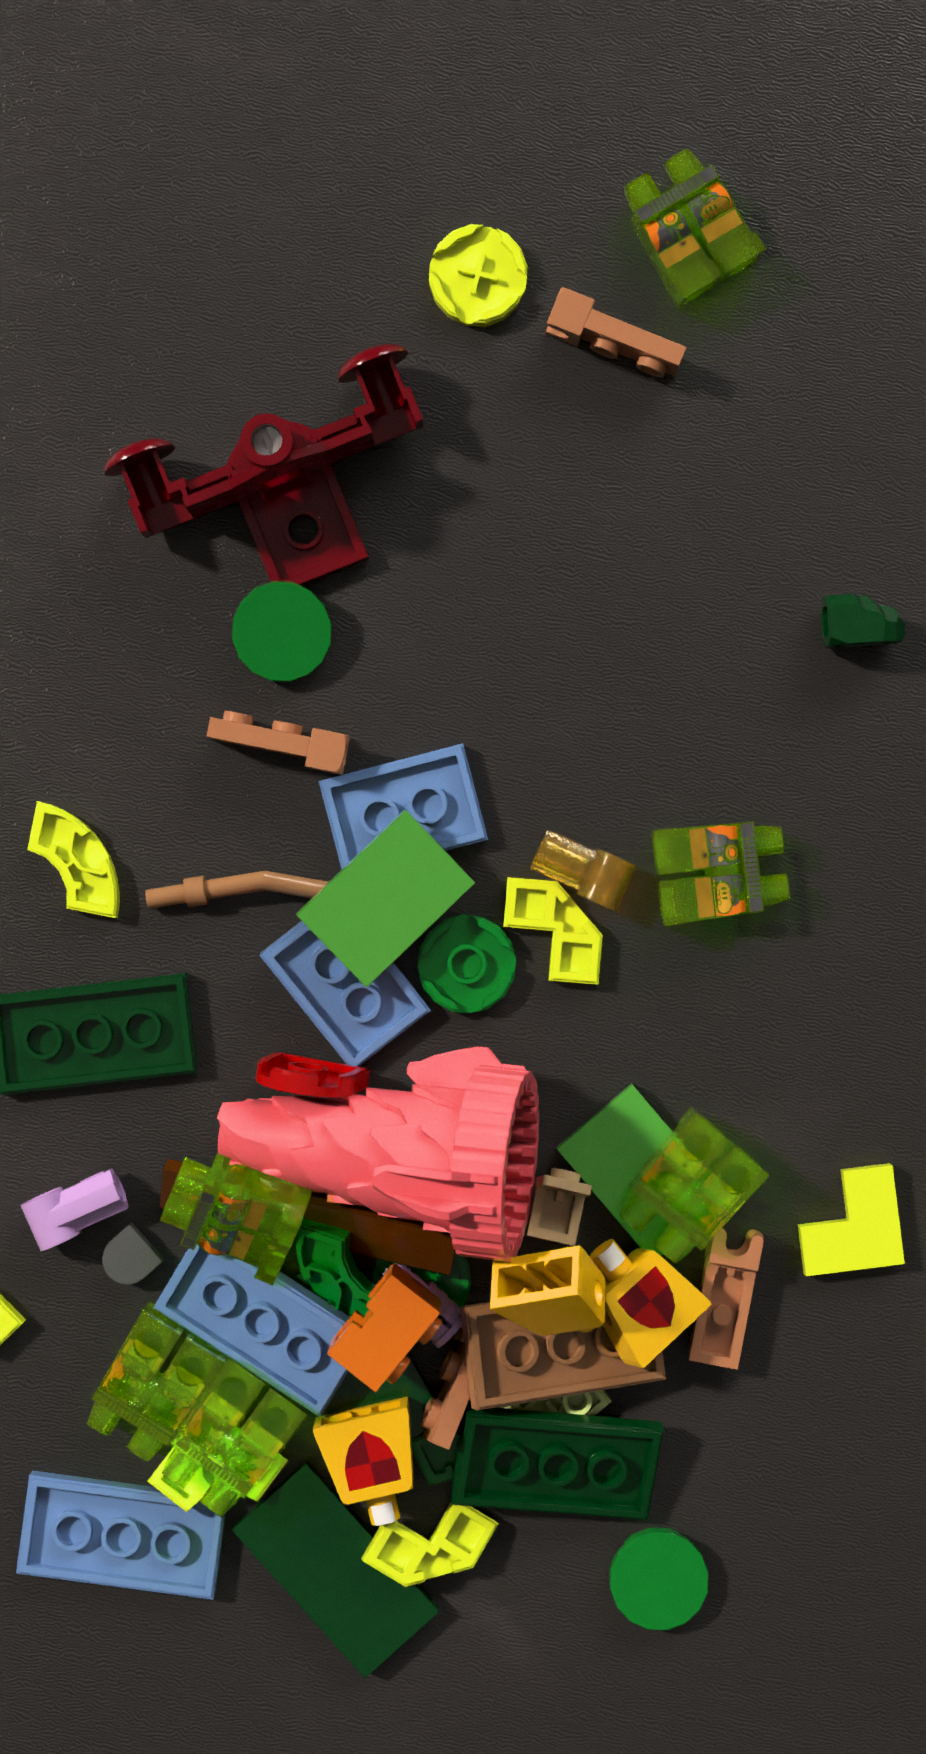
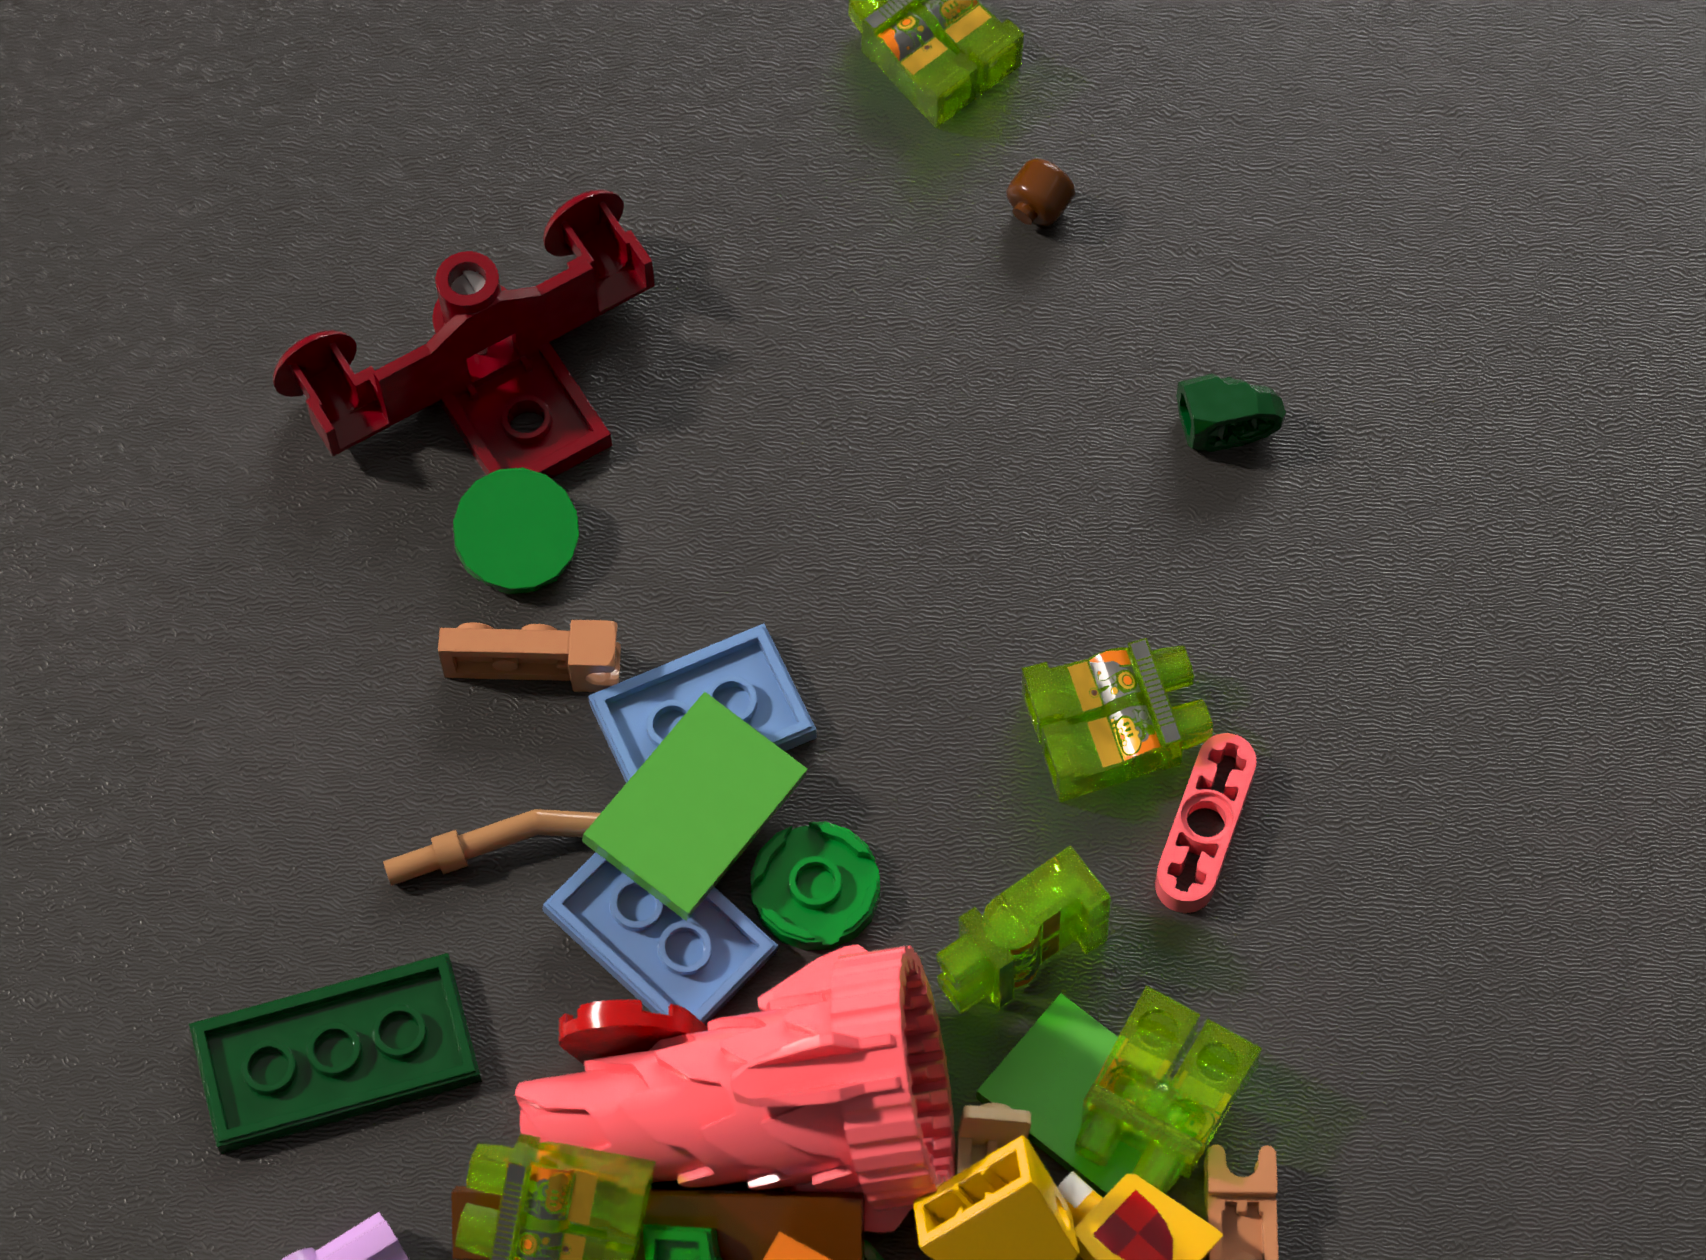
camera: 10 degrees left, 25 degrees down
(79, 858) = (291, 839): neon yellow tile -> none
(478, 275) = (693, 127): neon yellow tile -> none
(548, 907) = (908, 801): neon yellow tile -> none
(575, 319) = (863, 155): nougat plate -> none
(592, 873) = (961, 746): clear yellow piece -> none
(610, 1043) = (1022, 930): none -> clear neon green hips
(749, 396) = (1040, 192): none -> reddish brown piece
(789, 962) = (1203, 777): none -> coral beam
(868, 1233) = (1416, 1131): neon yellow tile -> none

